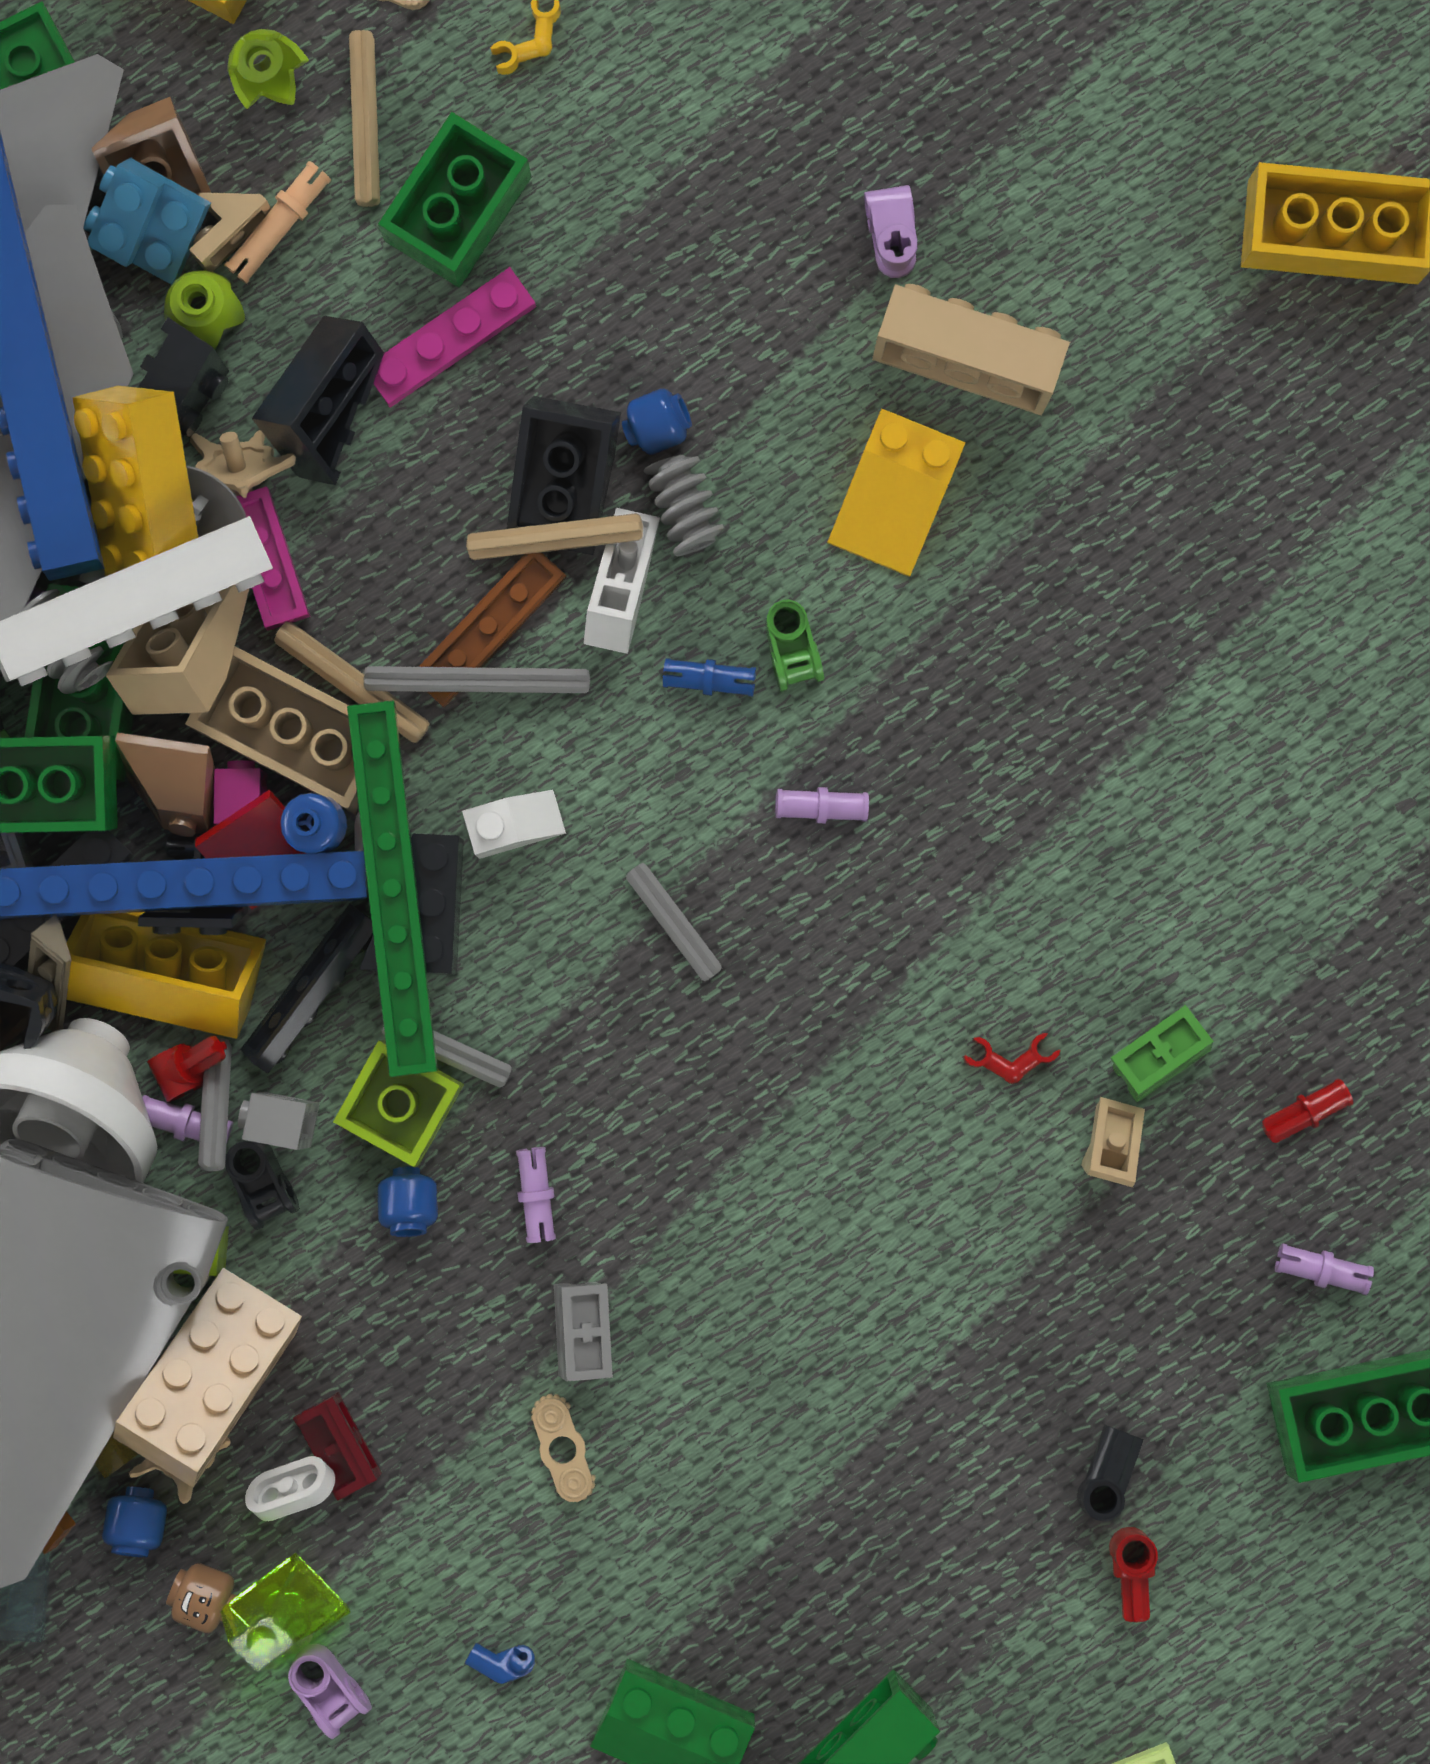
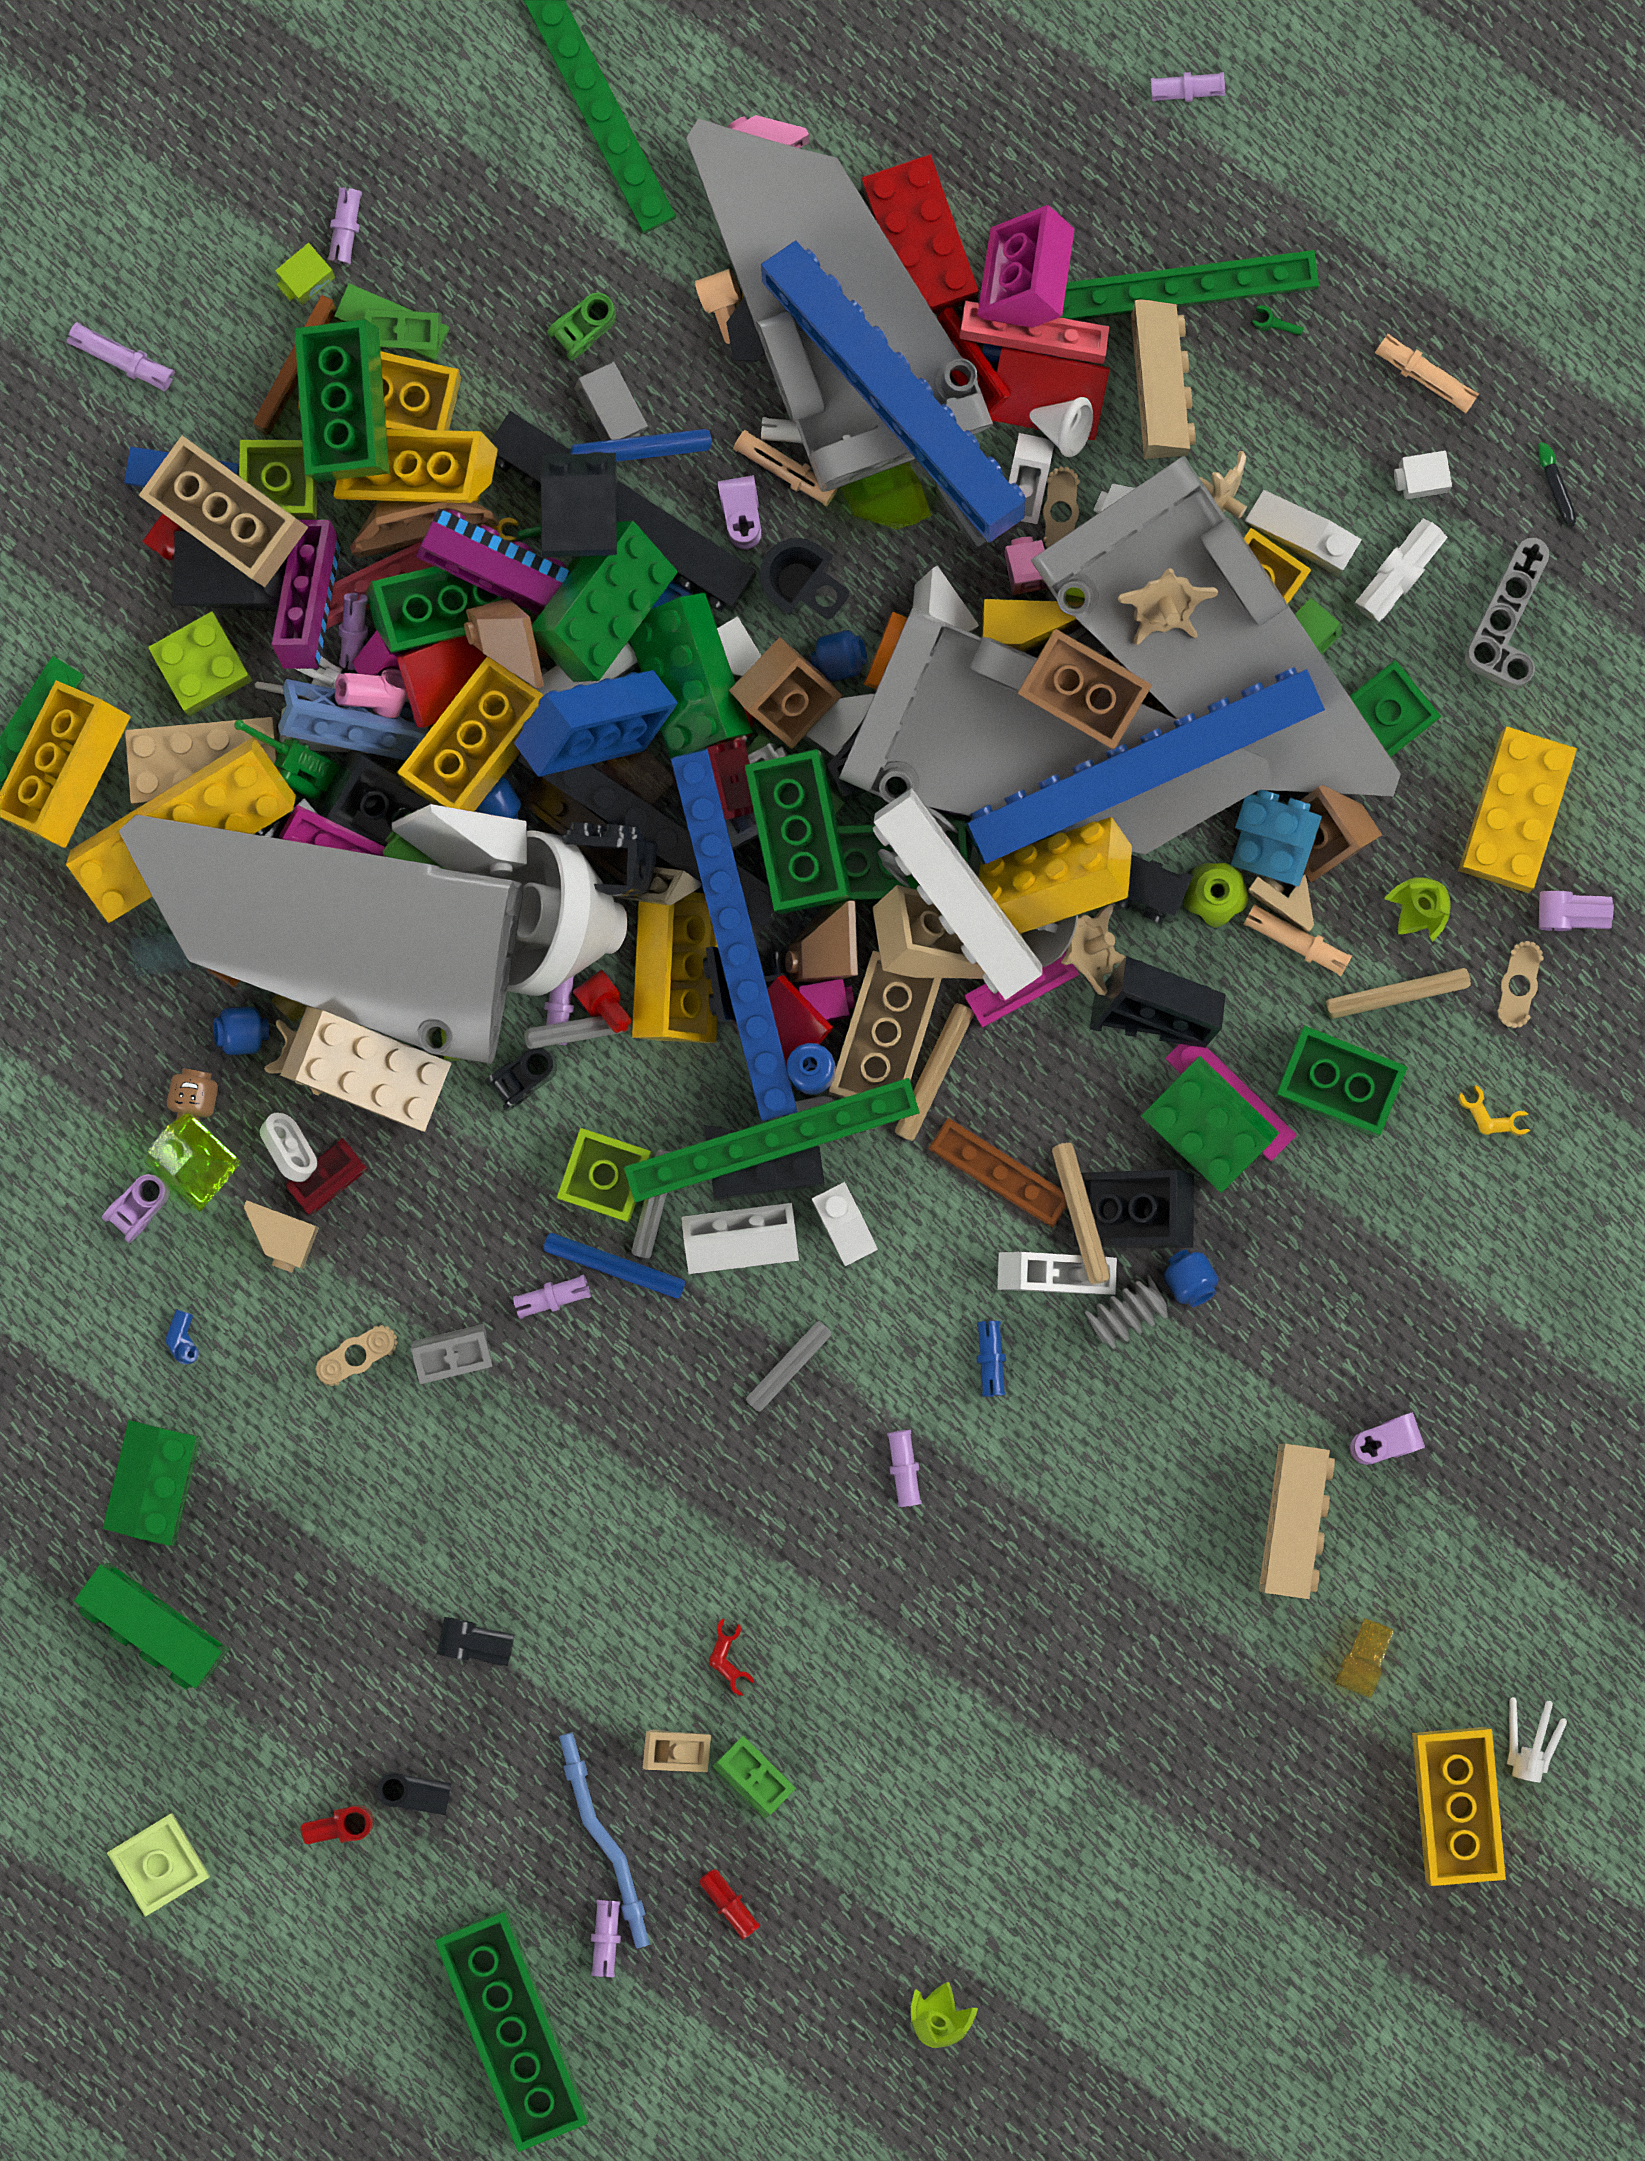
camera: 80 degrees right, 0 degrees up
(278, 1120) = (574, 1083): light grey brick -> none
(307, 990) = (683, 1086): black plate -> none
(398, 1516) = (281, 1236): none -> tan slope
(407, 1202) = (527, 1196): blue head -> none
(476, 679) = (953, 1172): light grey axle -> none
(477, 361) = (1210, 1124): none -> green brick
(507, 951) = (740, 1238): none -> white brick
(512, 1112) = (614, 1265): none -> blue axle
(793, 648) = (1025, 1422): bright green piece -> none
(896, 492) = (1168, 1482): yellow slope -> none
(937, 1370) = (467, 1641): none -> black piece
(1152, 307) = (1362, 1664): none -> clear yellow piece
(1291, 1229) = (632, 1907): none -> medium blue bar
(1300, 134) = (1531, 1762): none -> white plant

